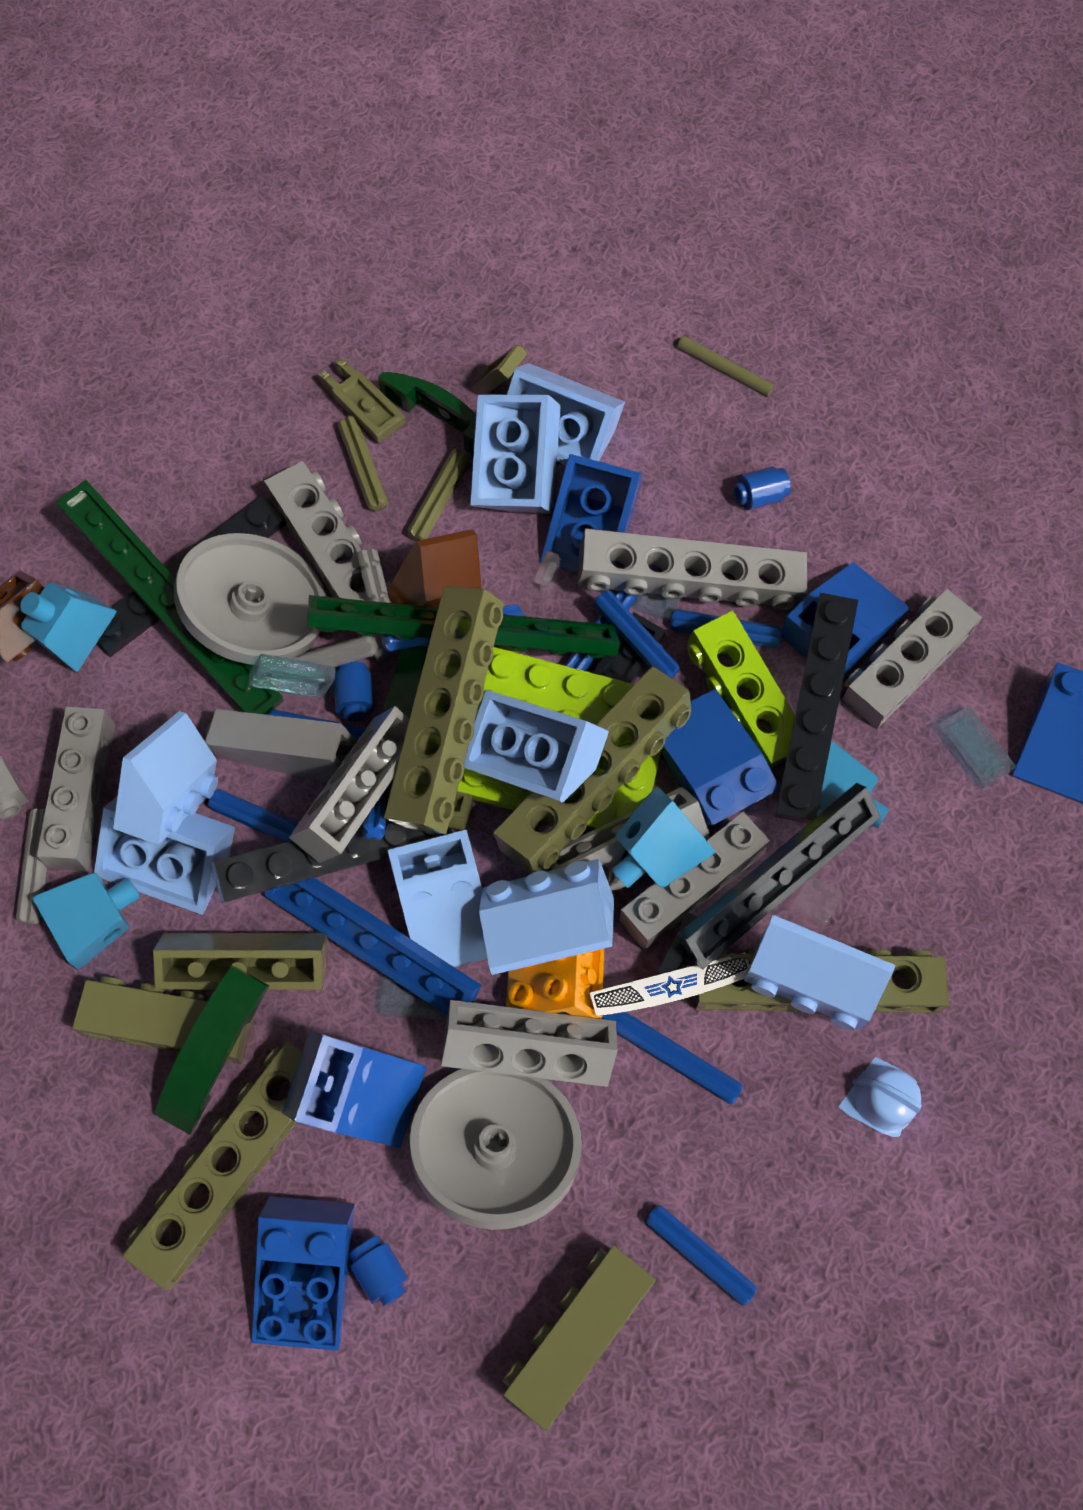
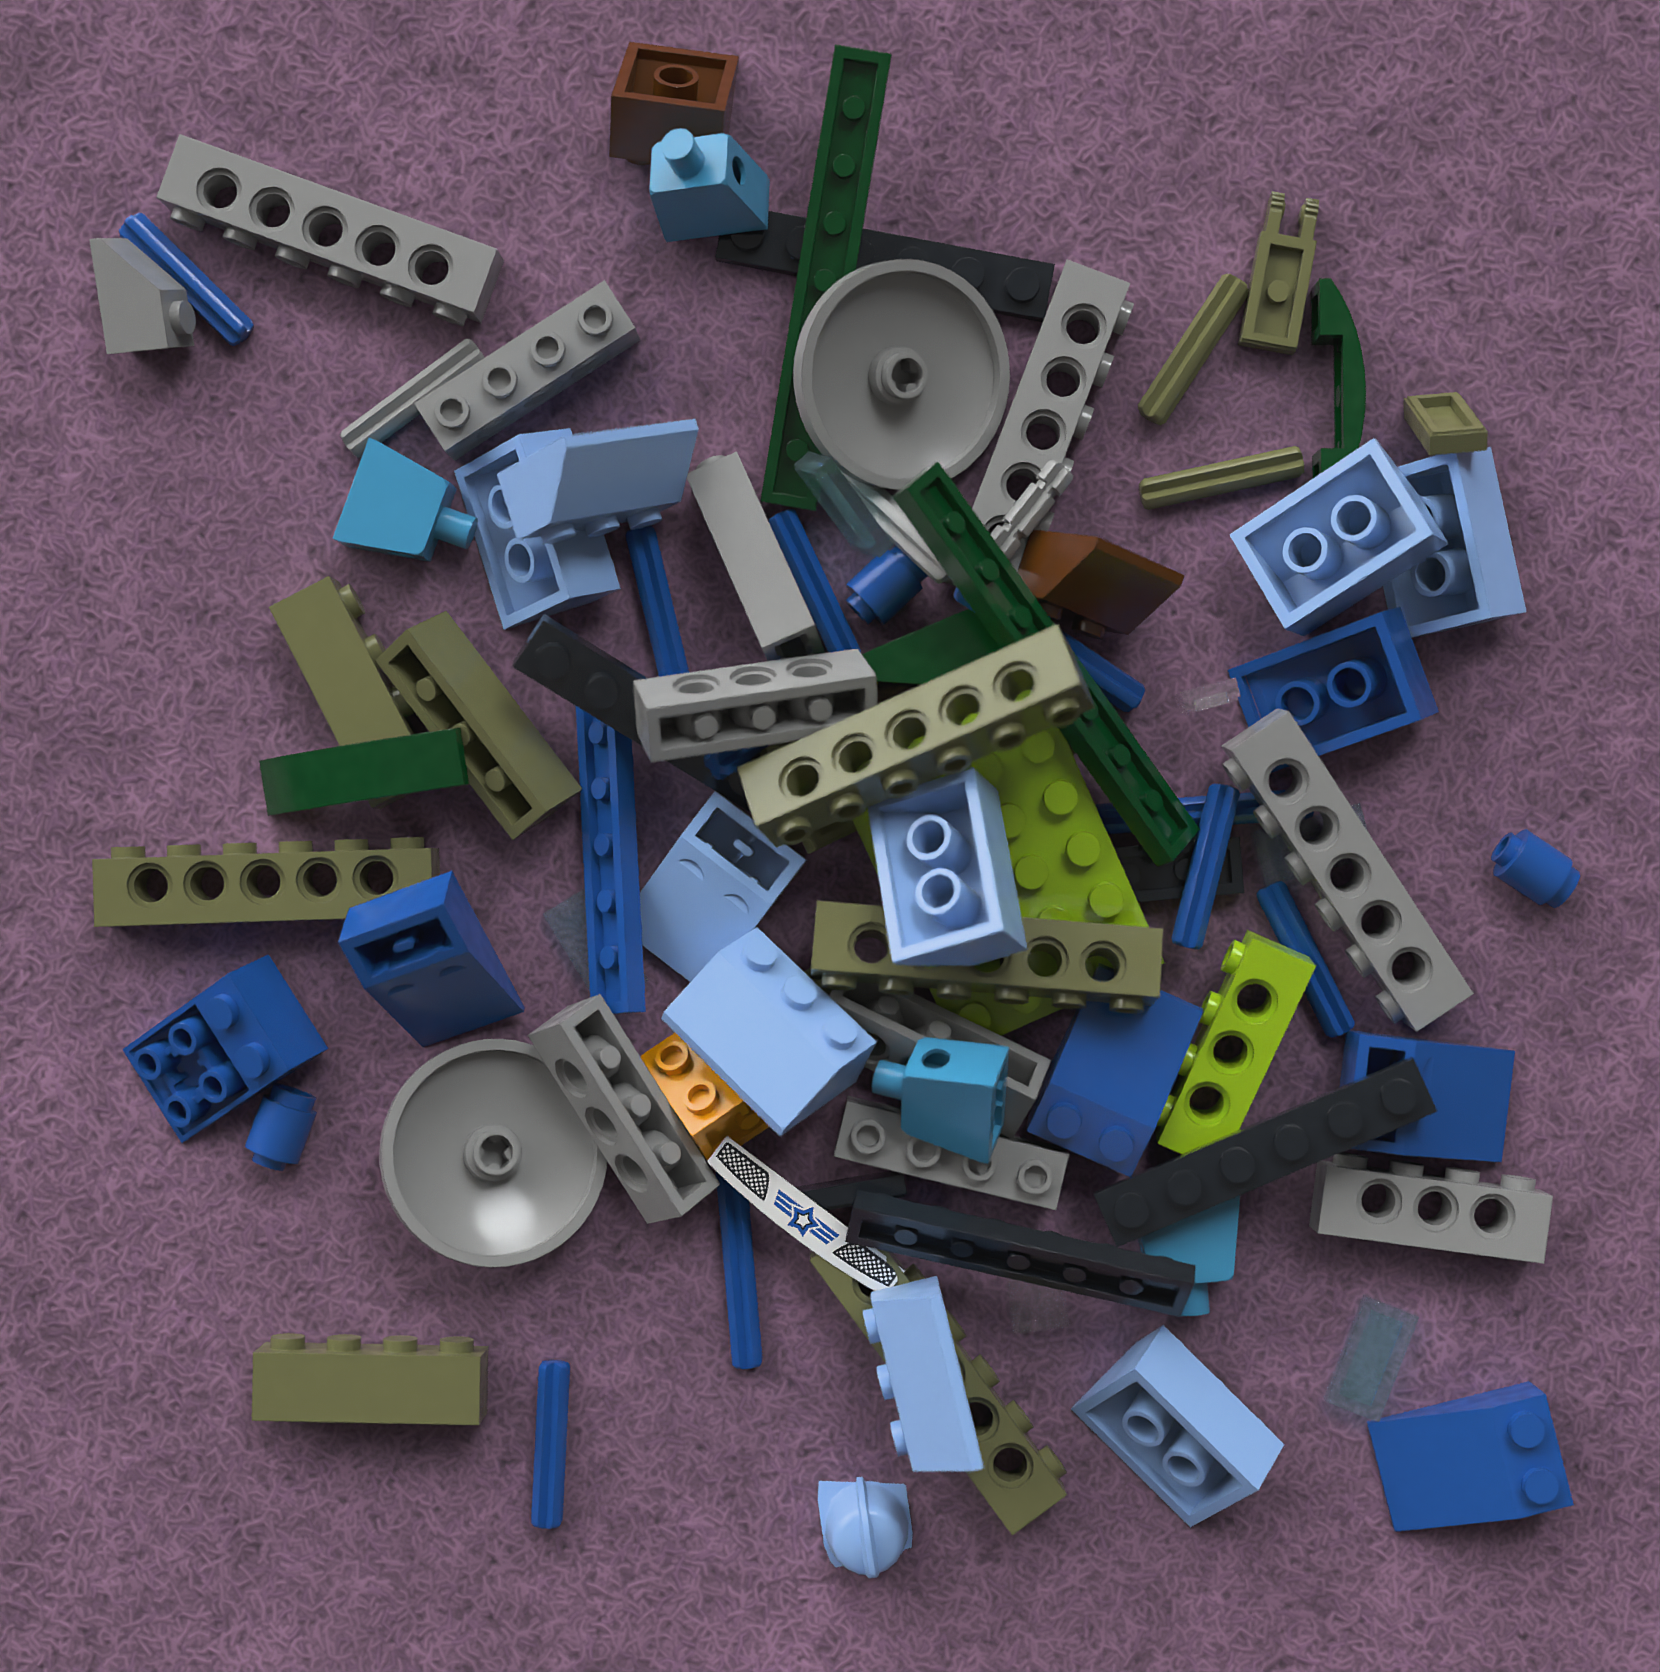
camera: 55 degrees right, 20 degrees up
(947, 873) = (1179, 1428): none -> light blue slope

